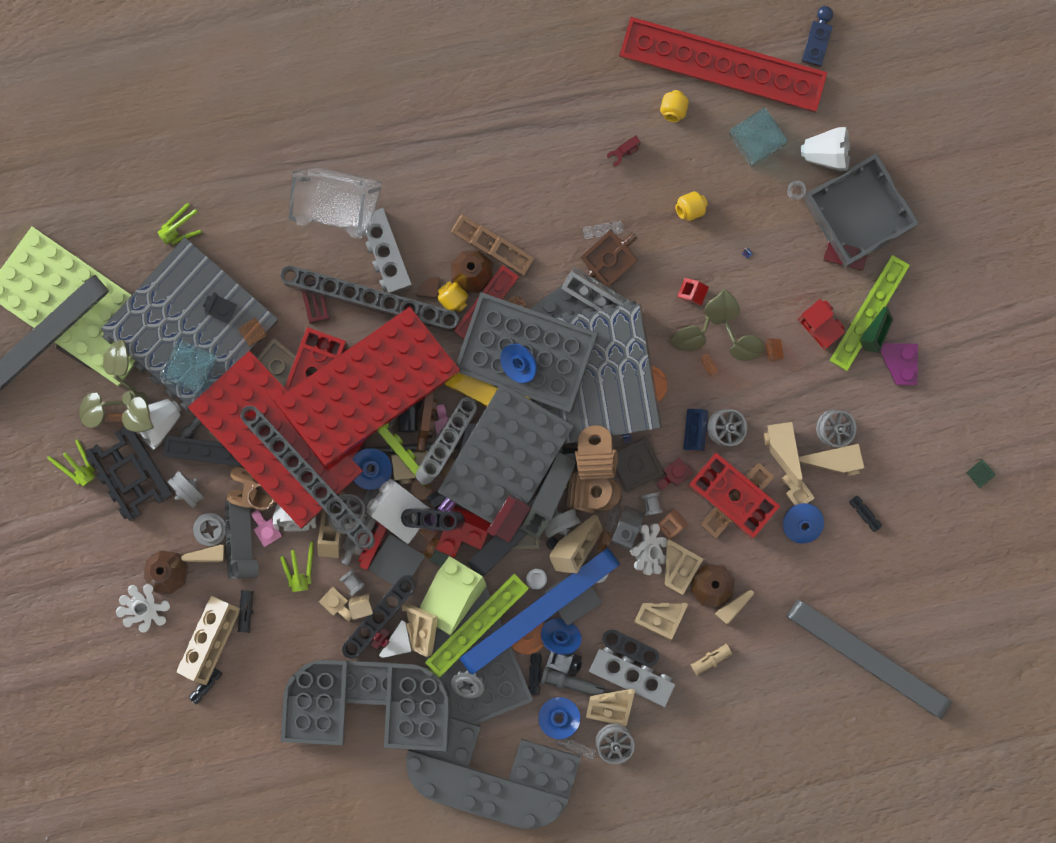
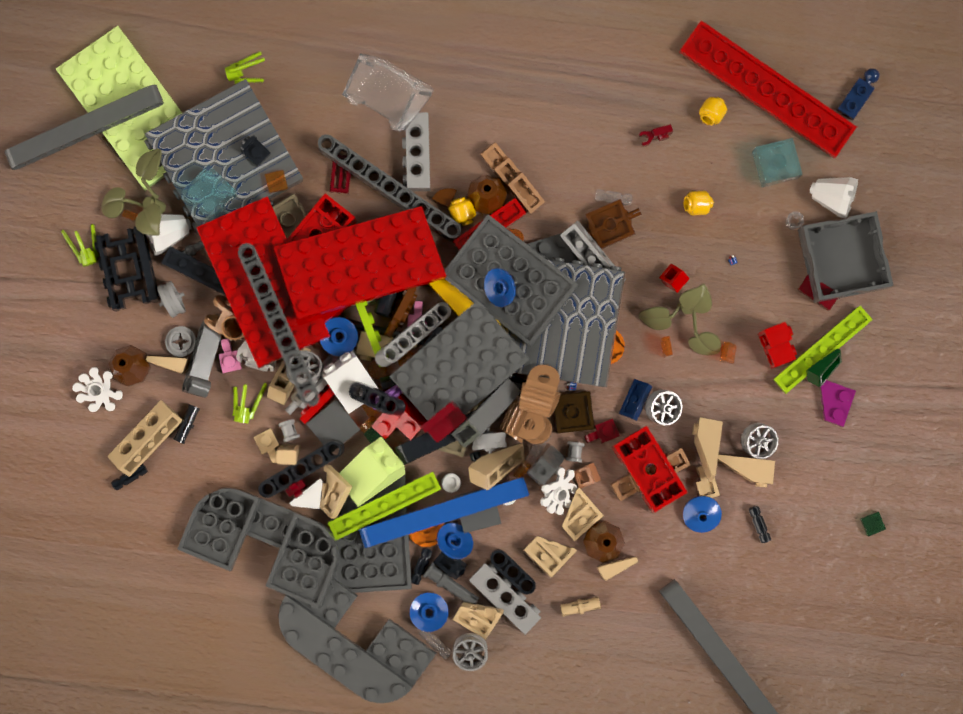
camera: 10 degrees right, 0 degrees up
(466, 690) = (354, 559): light grey gear -> none

